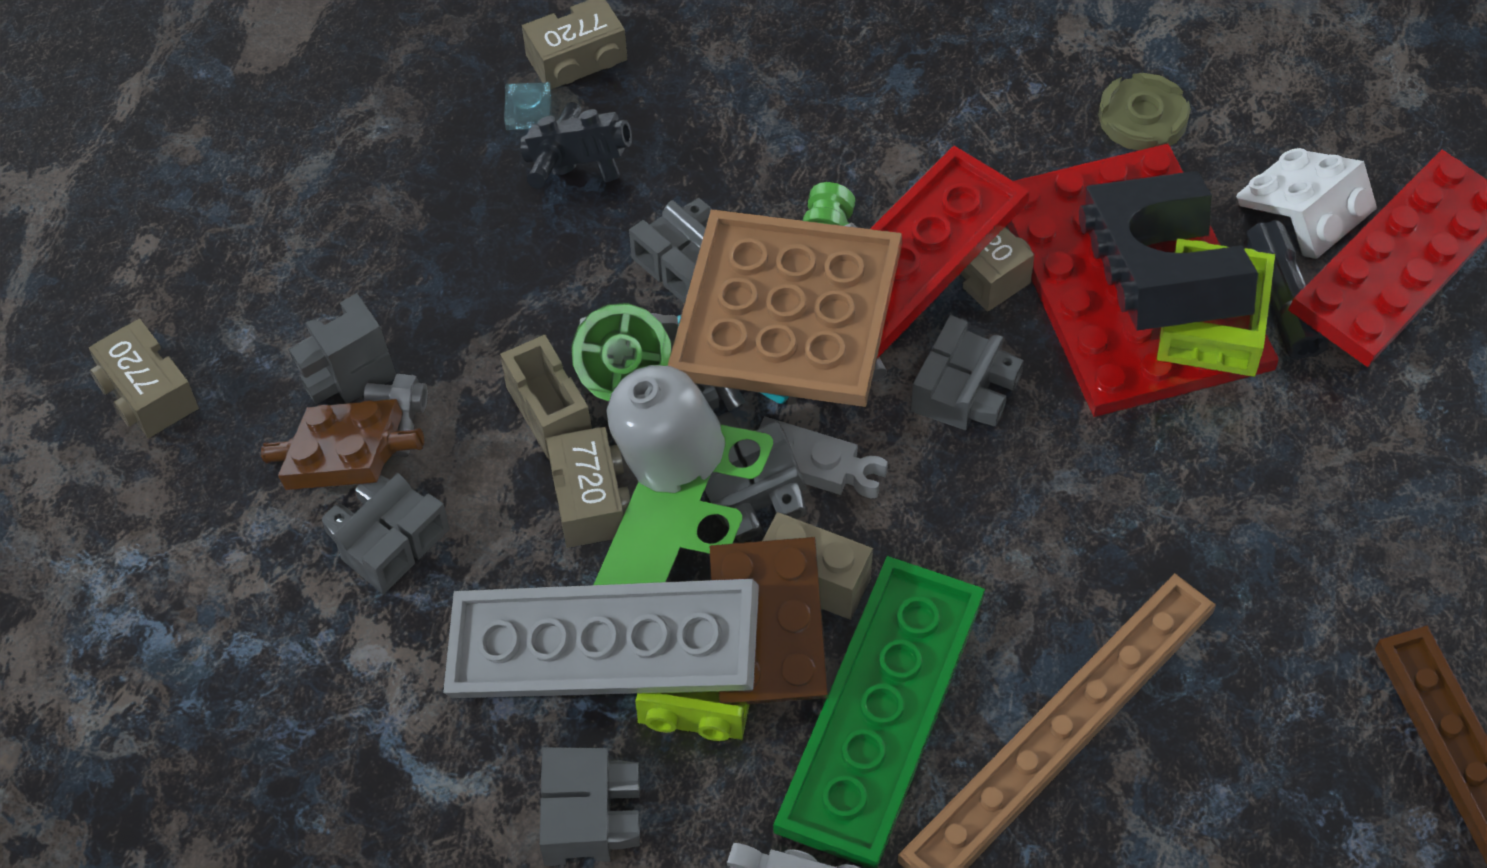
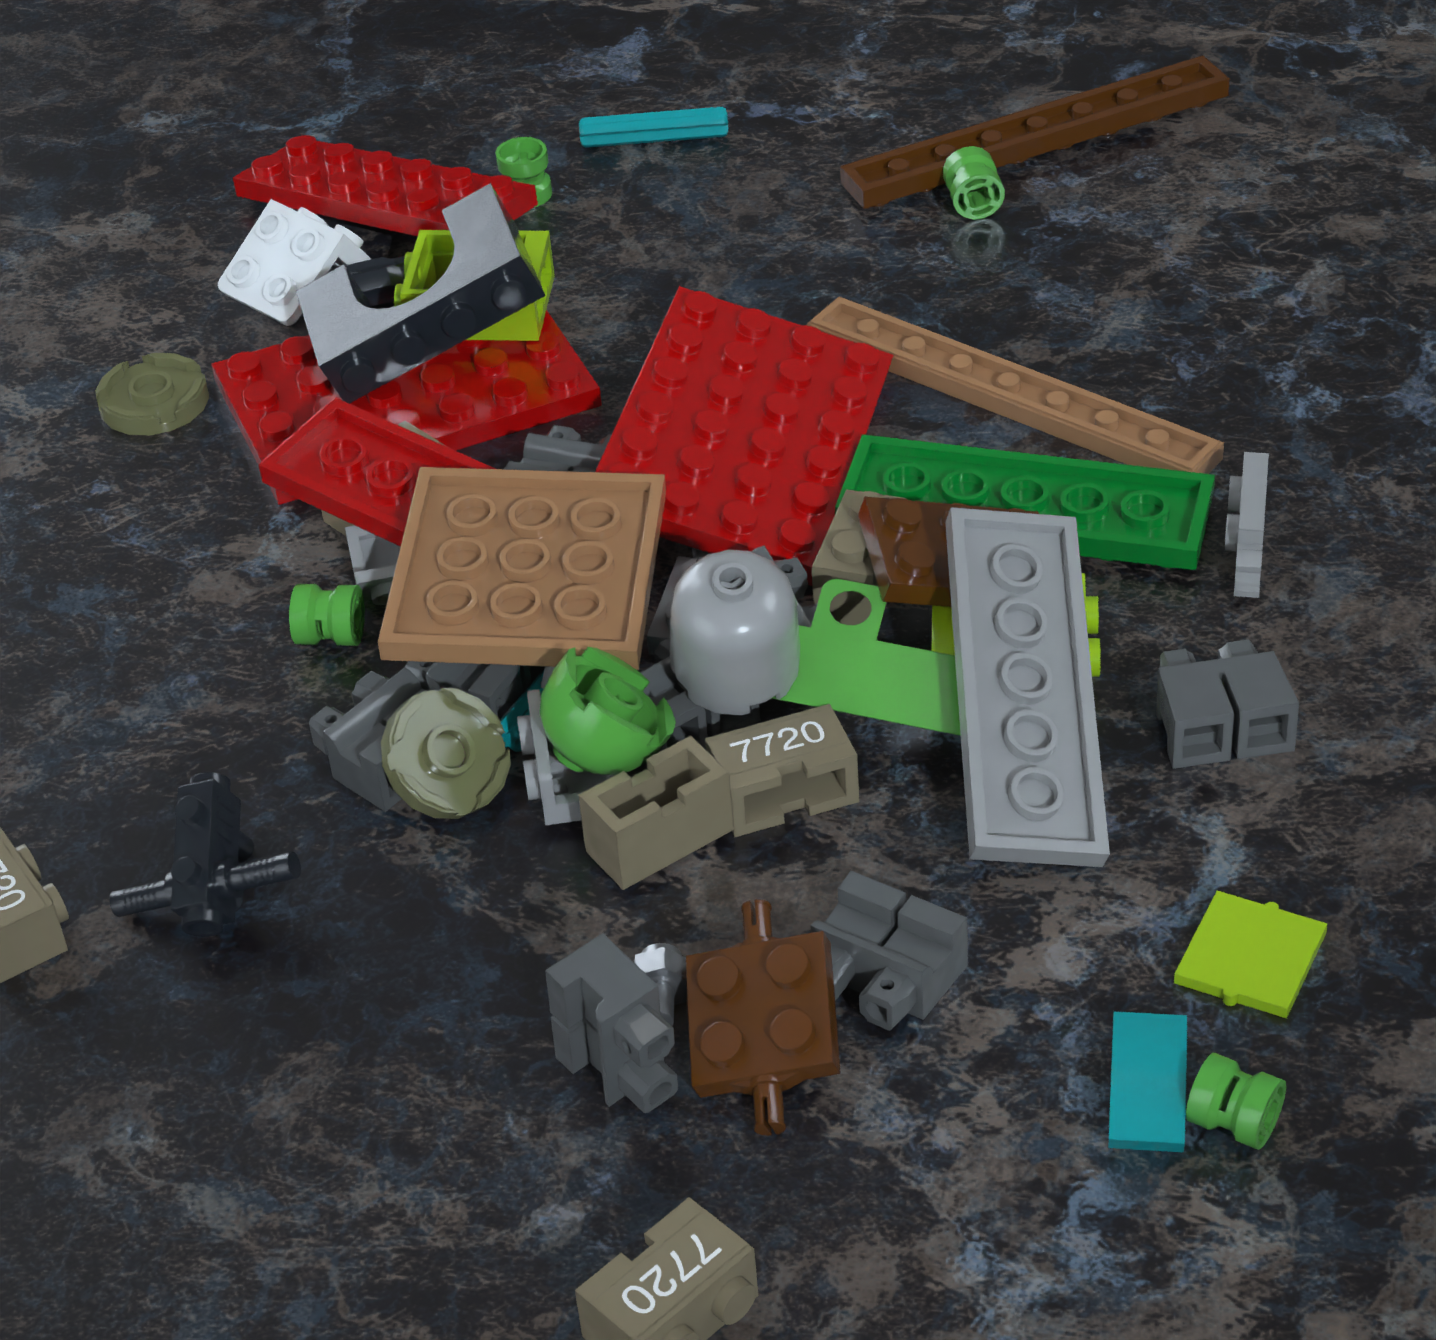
camera: 95 degrees left, 15 degrees down
(181, 724) = (1236, 1100): none -> bright green wheel
(226, 675) = (1148, 1082): none -> teal slope
(334, 780) = (1251, 954): none -> lime piece
(526, 104) = (106, 954): clear light blue plate -> none
(643, 270) = (445, 753): none -> olive tile
(1002, 495) = (747, 426): none -> red plate
(1395, 744) = (973, 182): none -> bright green wheel
(1439, 365) = (525, 162): none -> bright green wheel

